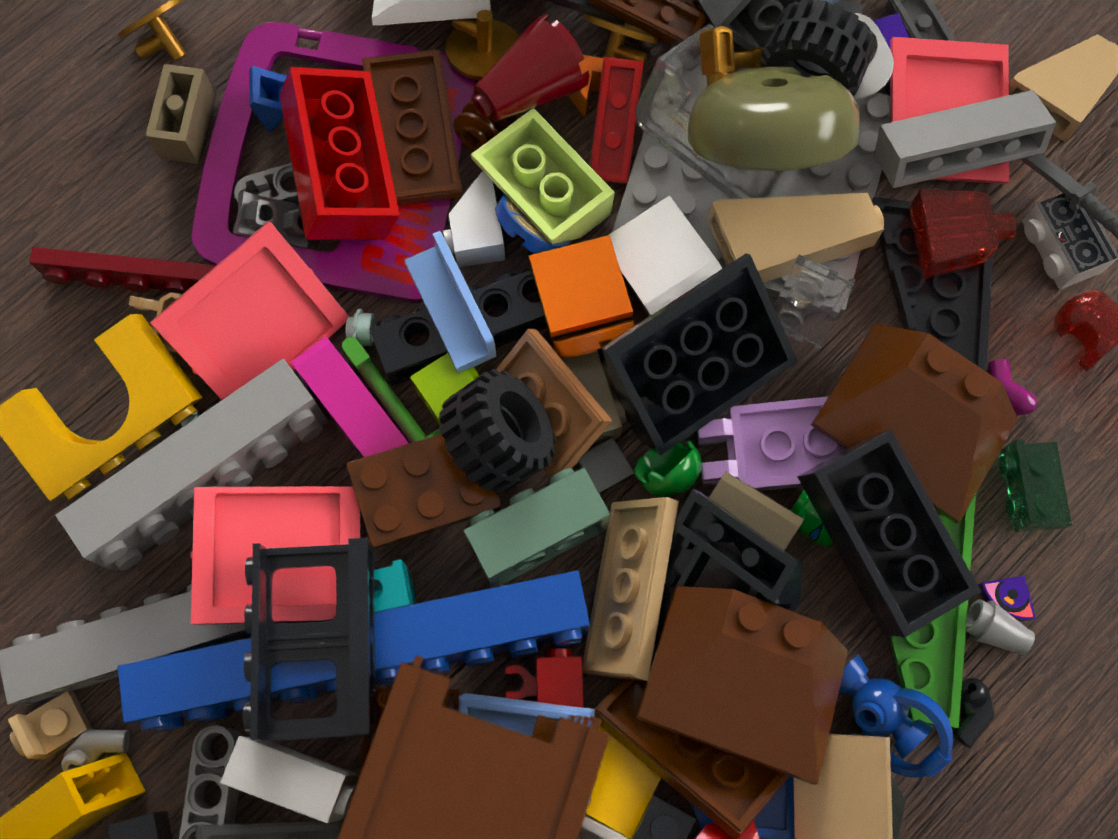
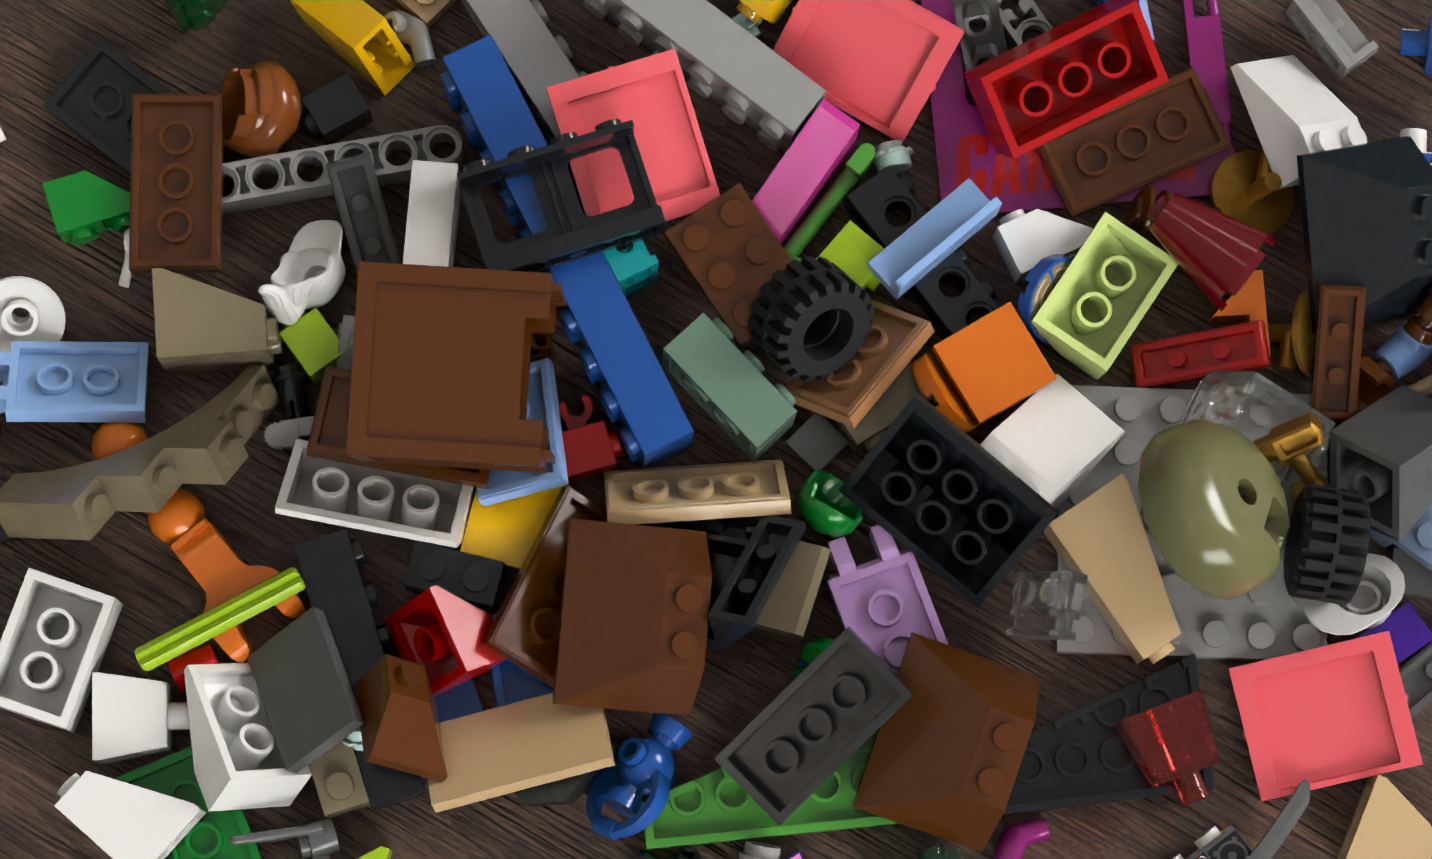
camera: 65 degrees right, 5 degrees up
(963, 138) = (1282, 729): light grey brick -> none

